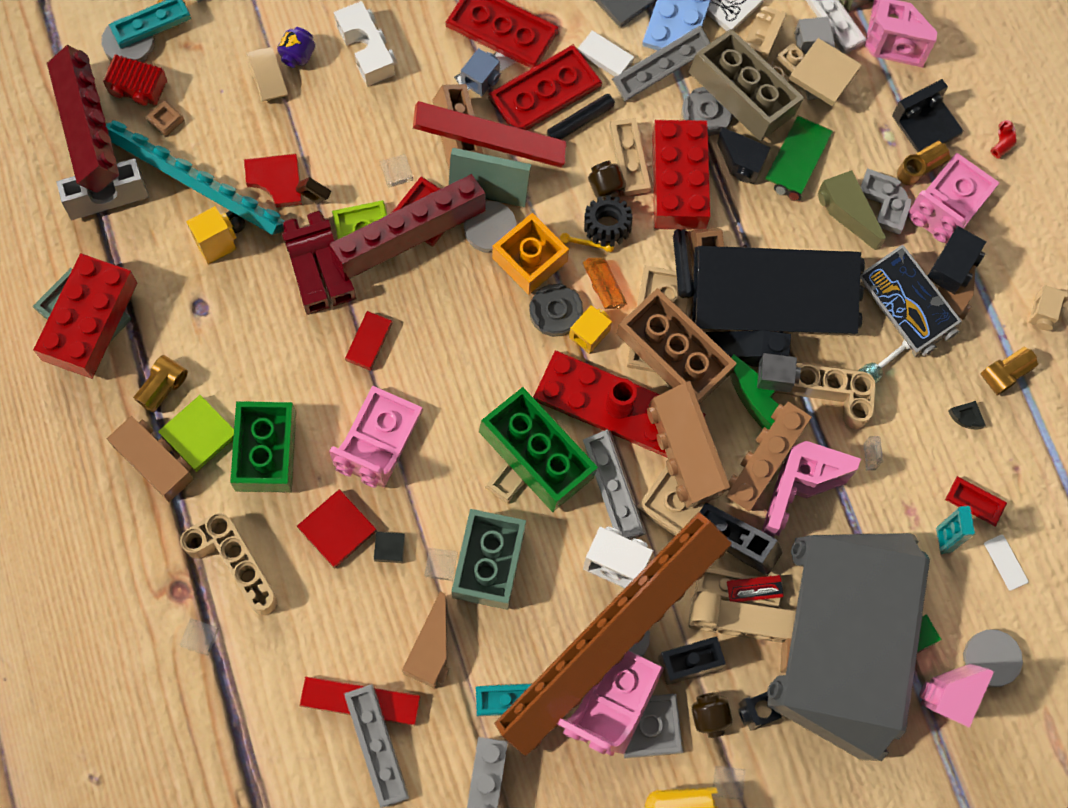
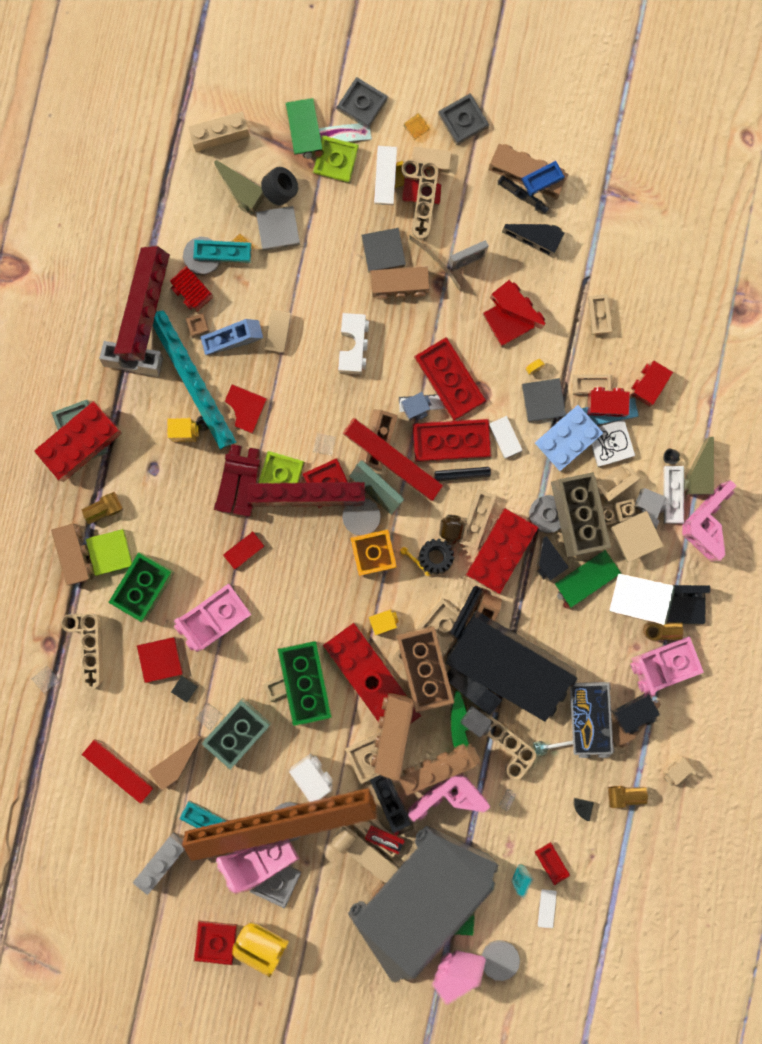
camera: 30 degrees right, 15 degrees up
(215, 105) = (232, 336): none -> medium blue slope
(296, 47) = (306, 323): dark purple head -> none
(313, 190) = (262, 432): dark brown tile -> none
(376, 746) = (112, 803): light grey tile -> none
(555, 309) = (370, 595): dark grey tile -> none
(604, 283) = (409, 596): clear orange plate -> none
(614, 485) = (338, 729): light grey tile -> none
(660, 63) = (537, 467): light grey tile -> none
(692, 660) = (319, 862): black brick -> none
(711, 714) = (313, 897): dark brown head -> none
(729, 782) = (301, 940): clear tile -> none
(749, 715) = (336, 912): black bracket -> none
(850, 207) = (596, 630): olive slope -> none
(876, 136) = (642, 598): none -> tile
(891, 195) = (628, 644): light grey plate -> none
(1007, 139) = (730, 644): red arm -> none

